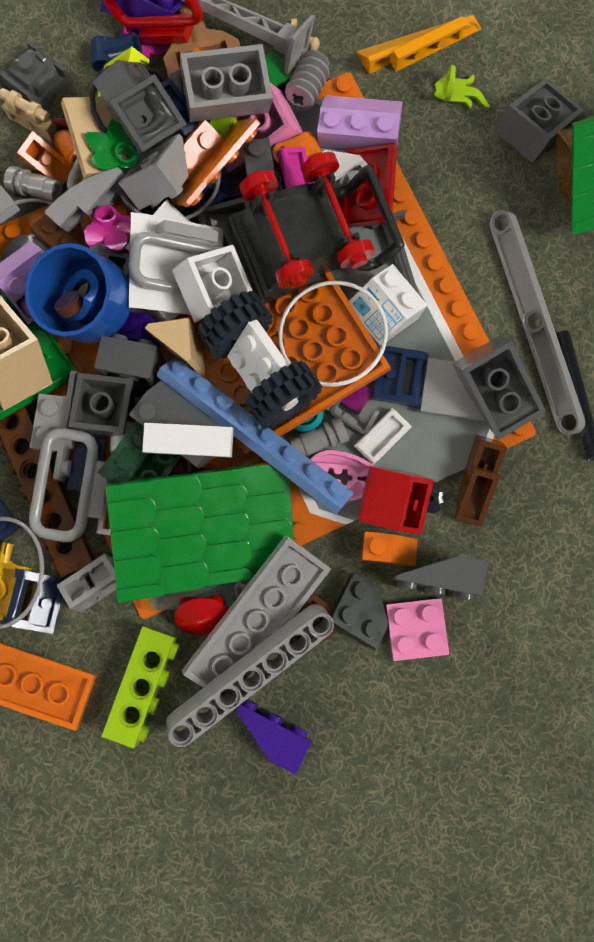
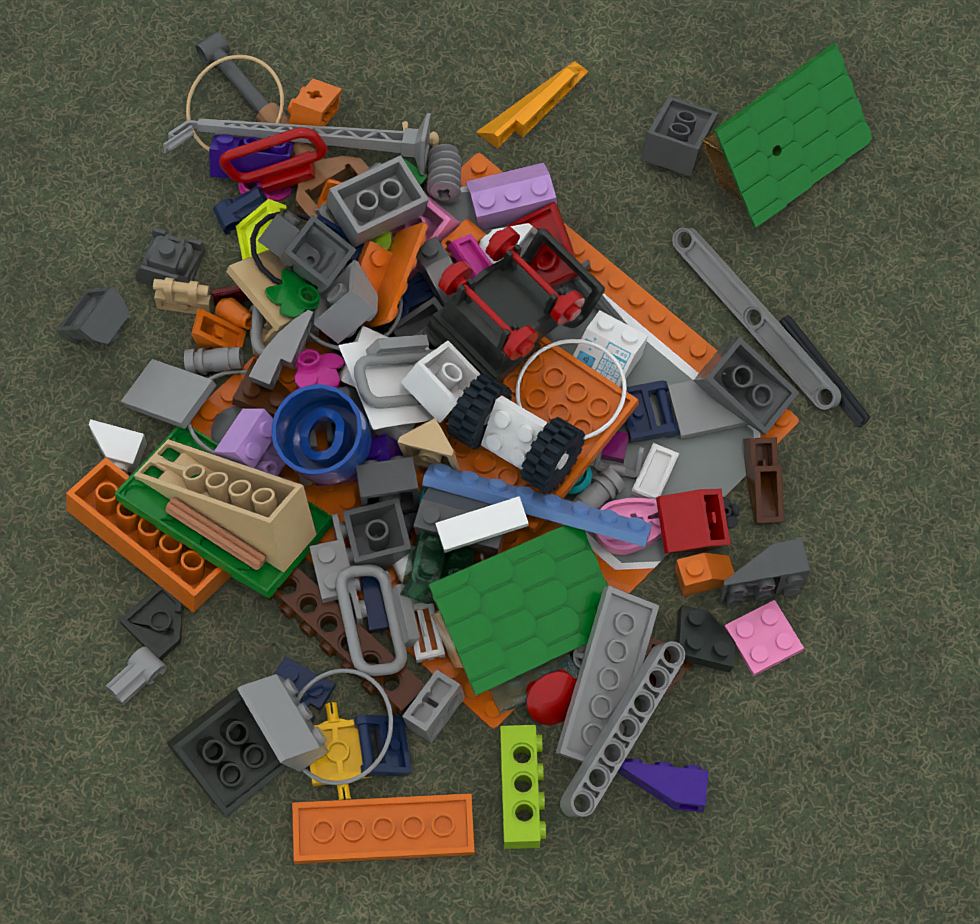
camera: 25 degrees left, 15 degrees down
(69, 304) = (317, 445): reddish brown tile -> none
(458, 90) = (590, 135): lime piece -> none

